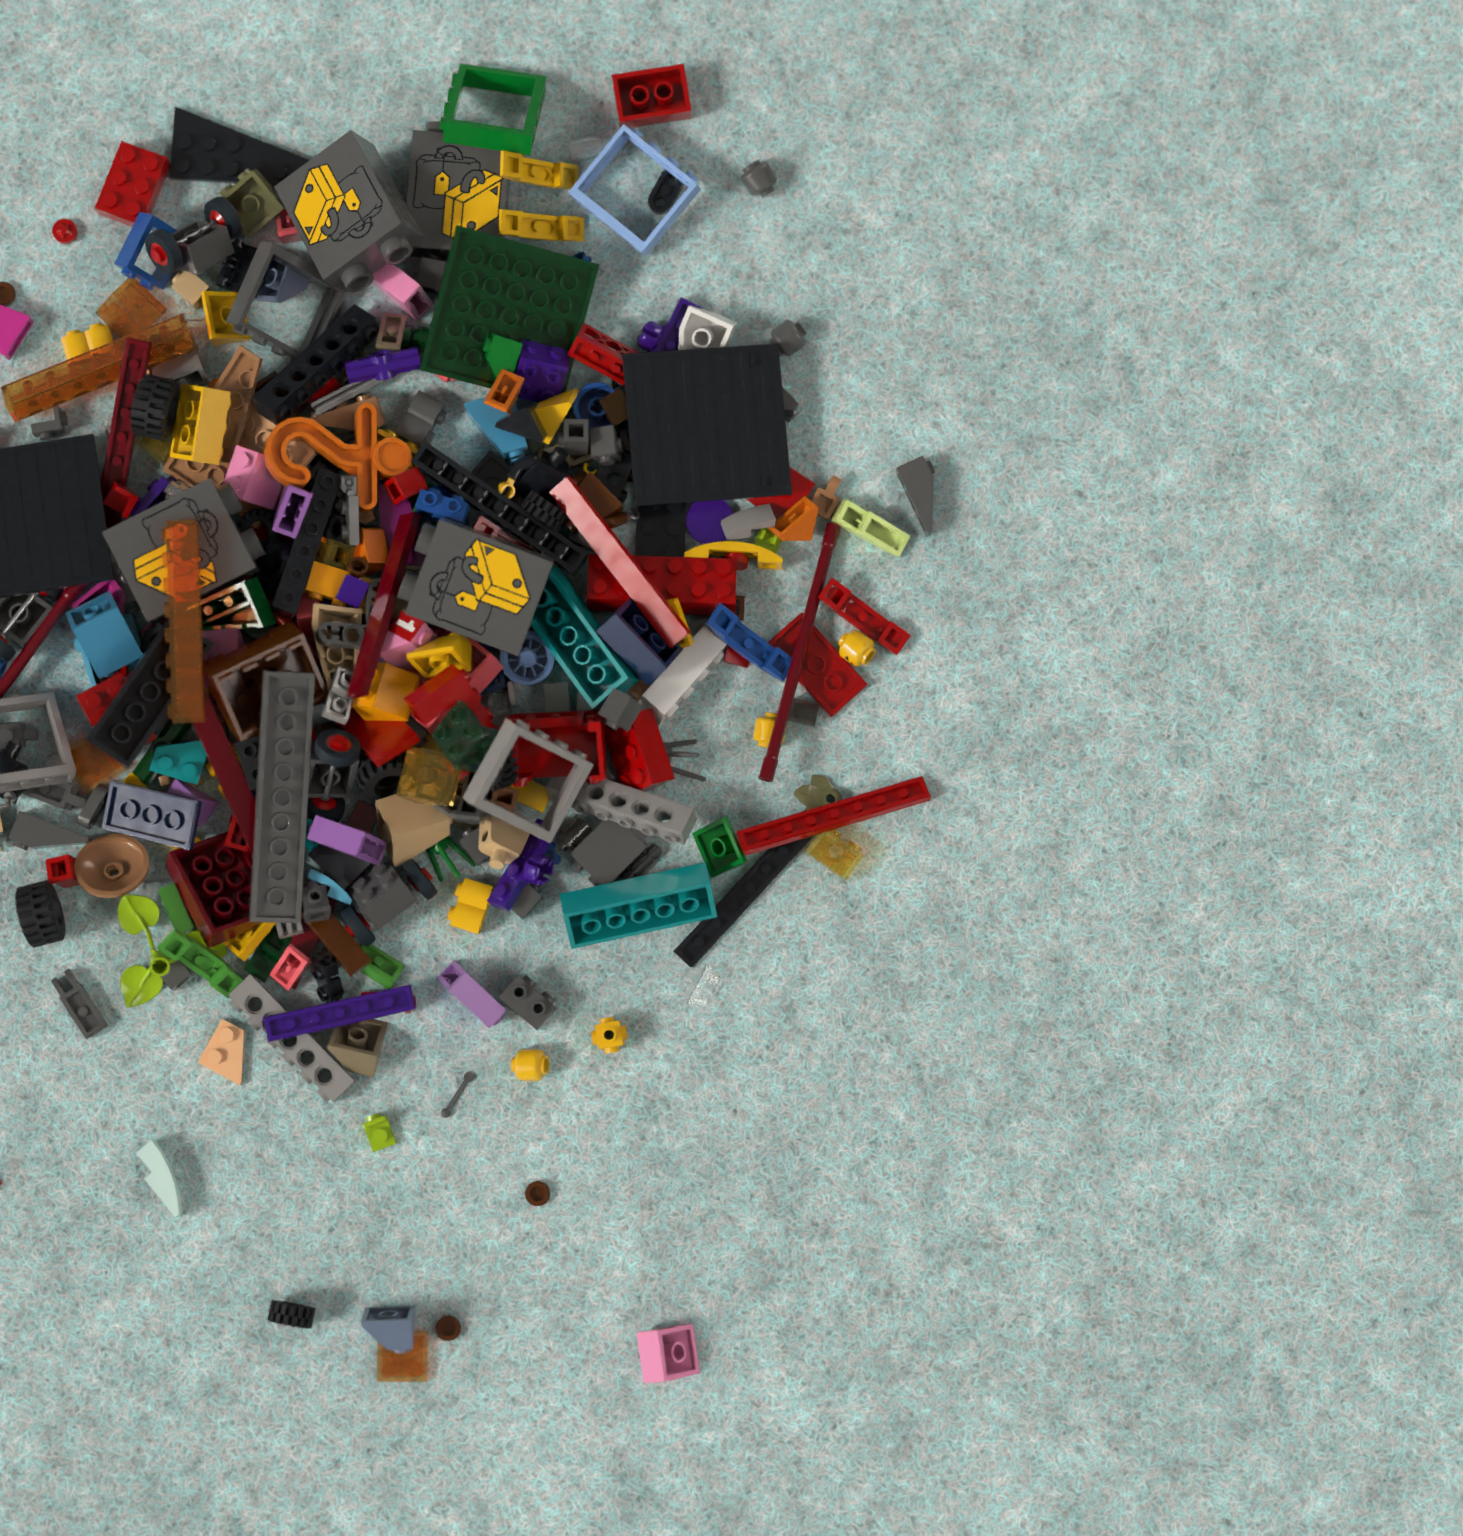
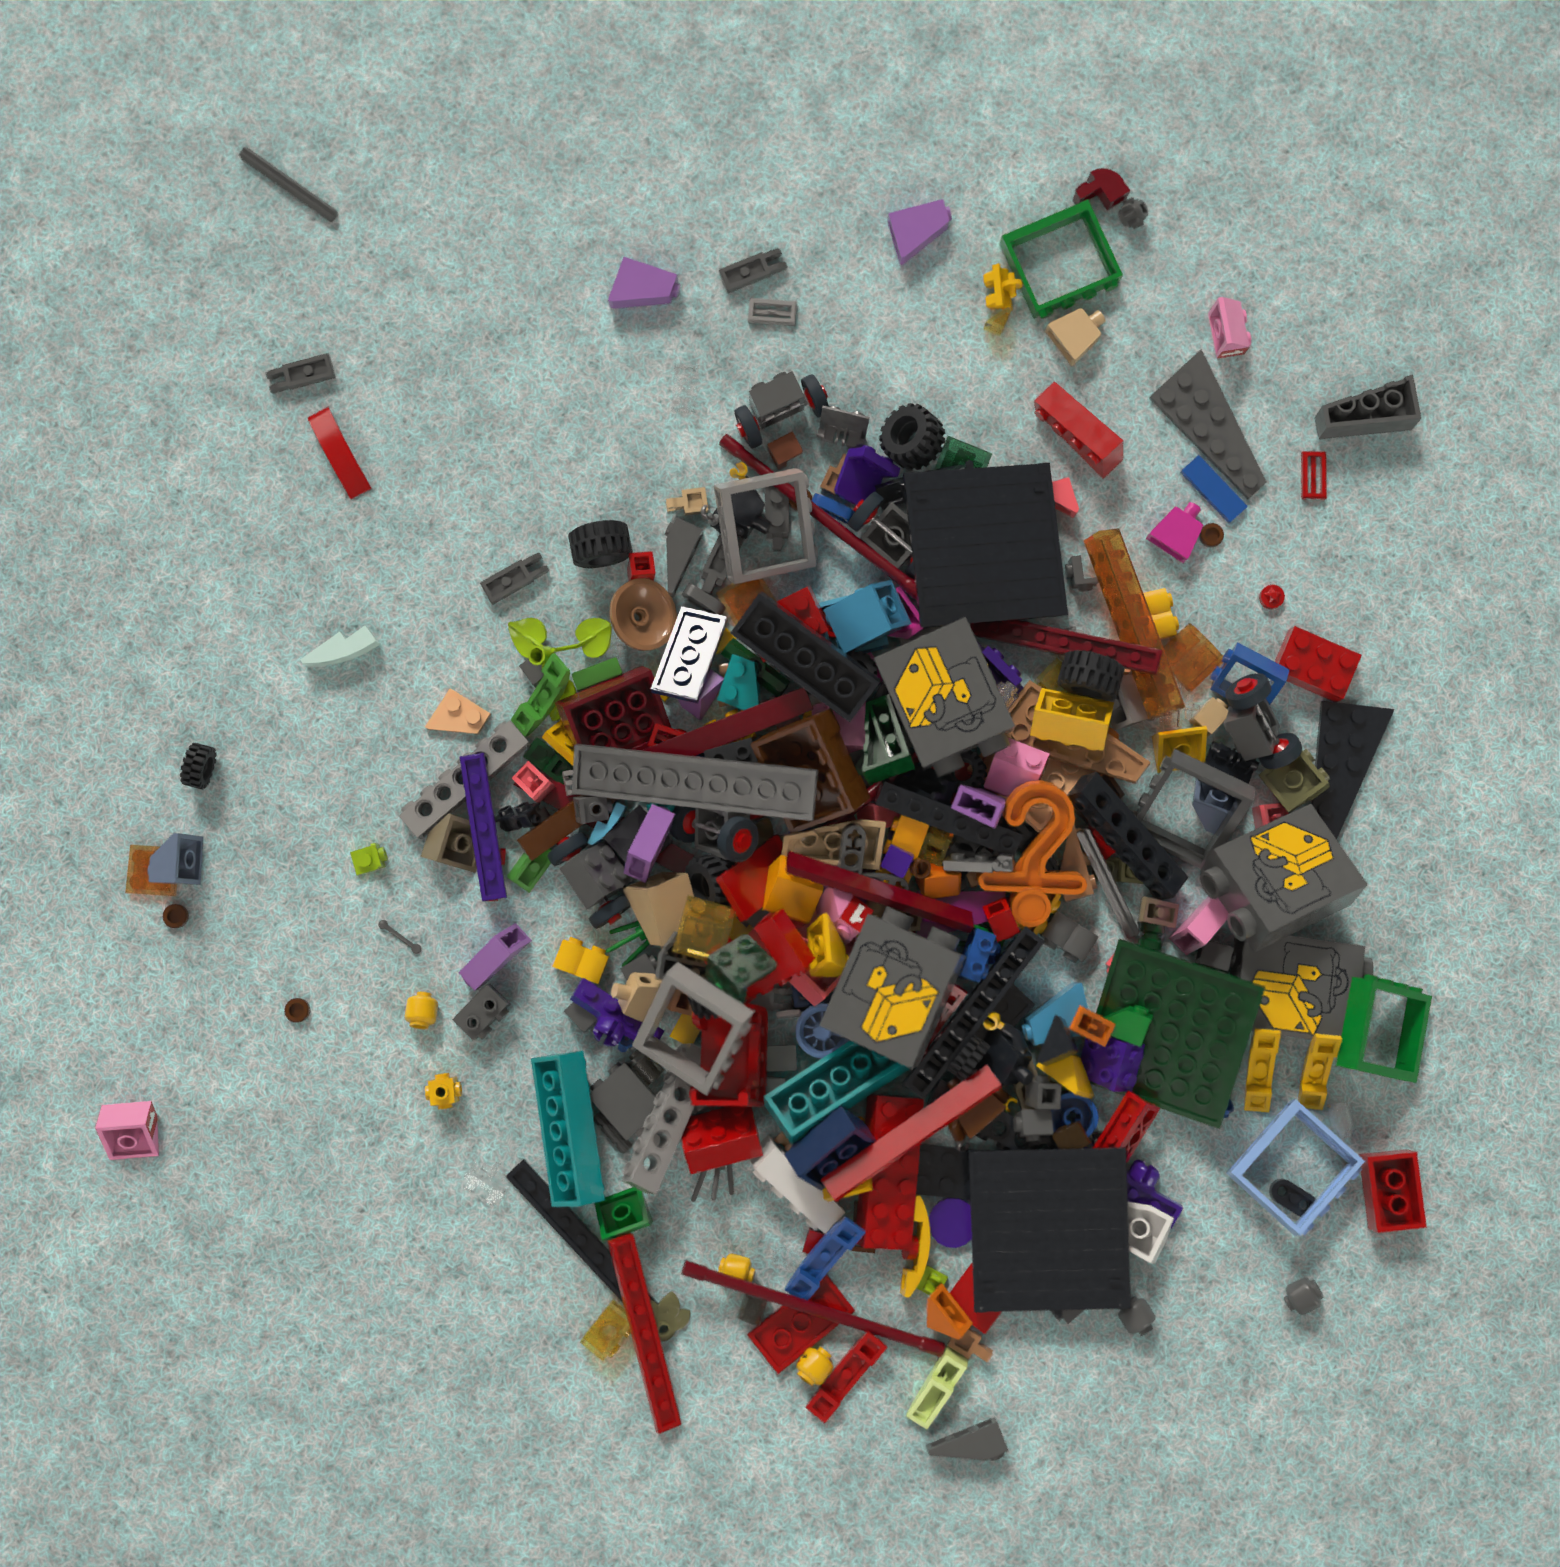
camera: 100 degrees right, 0 degrees up
(120, 499) = (1002, 638): red panel -> none
(185, 621) = (870, 695): clear orange brick -> none
(337, 704) = (782, 841): light grey slope -> none
(383, 365) = (1124, 903): dark purple piece -> none
(620, 710) = (758, 1125): dark grey brick -> none
(742, 522) = (948, 1258): light grey slope -> none

